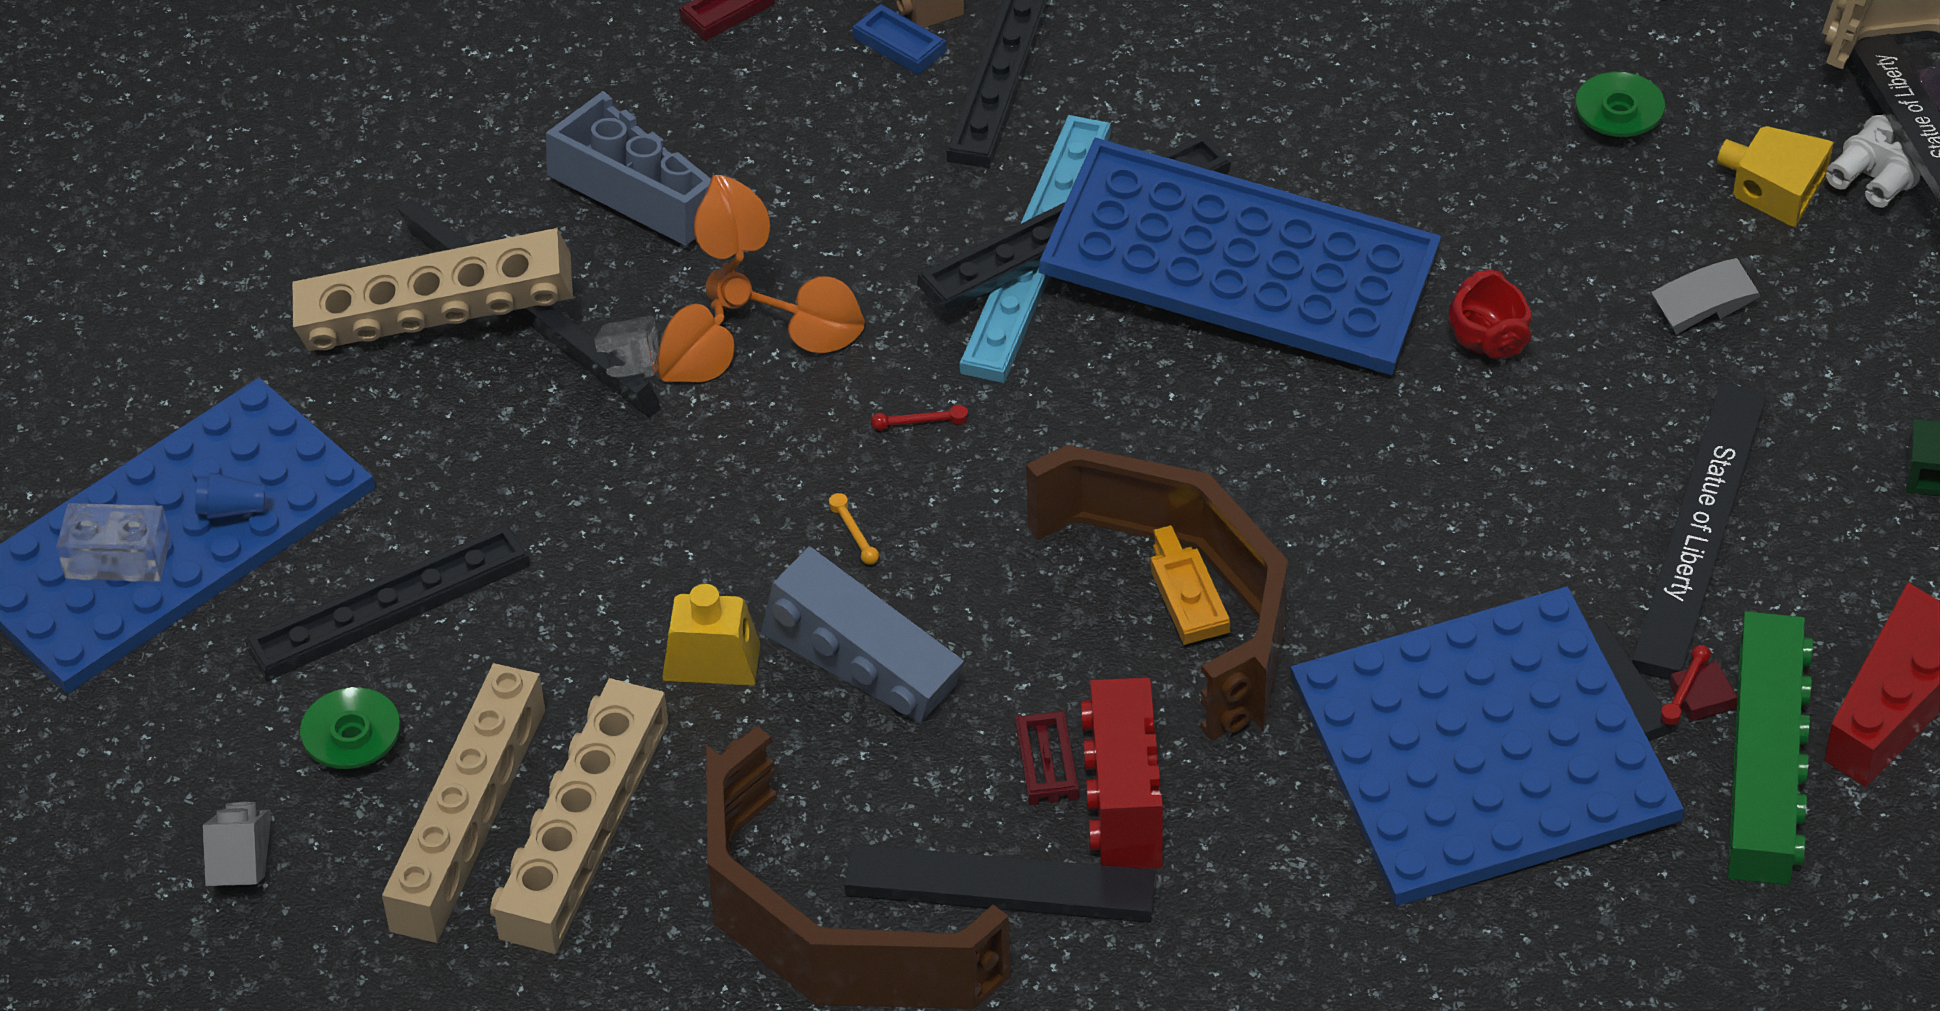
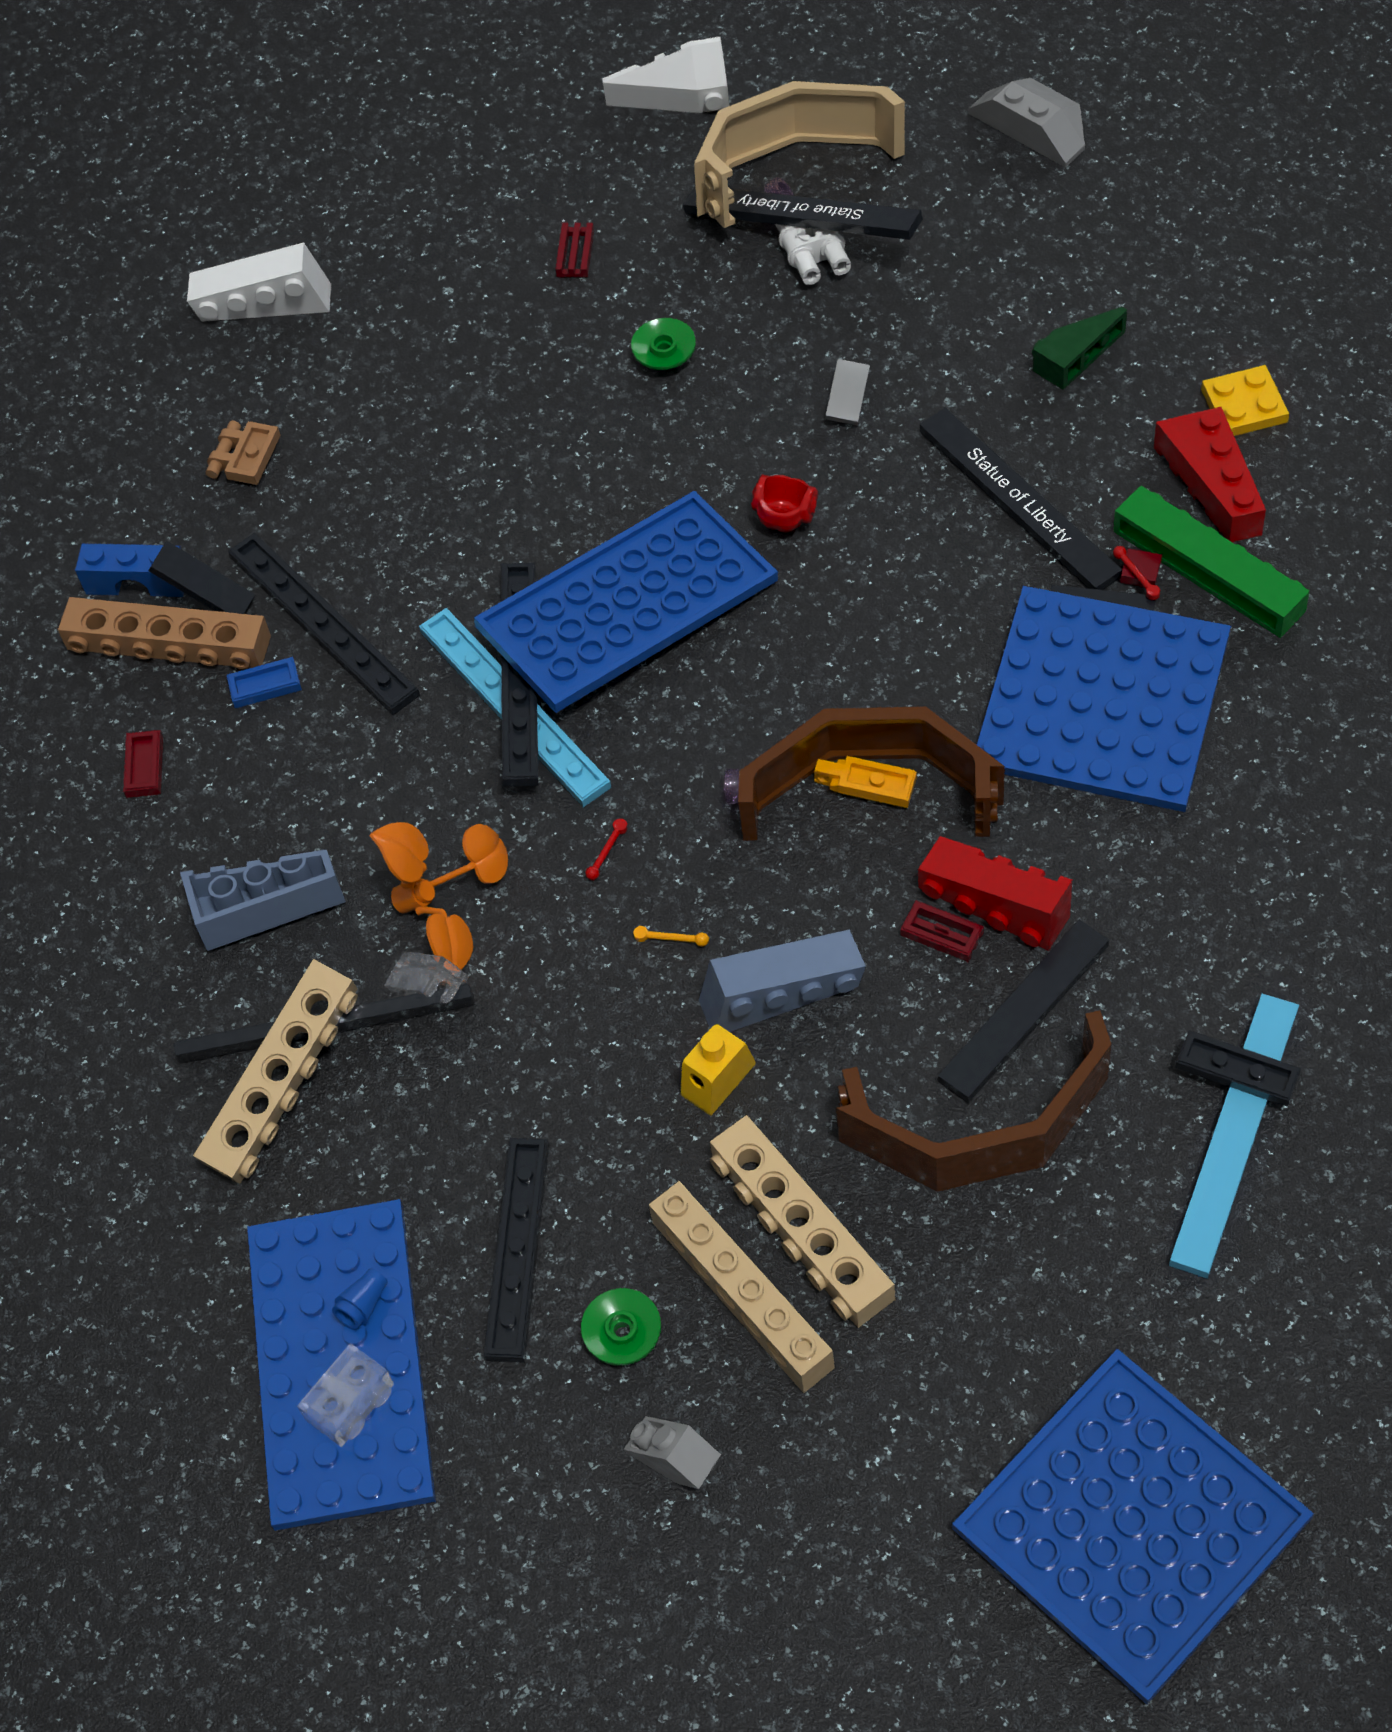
camera: 50 degrees left, 10 degrees up
(1778, 171) = (782, 301): yellow torso -> none

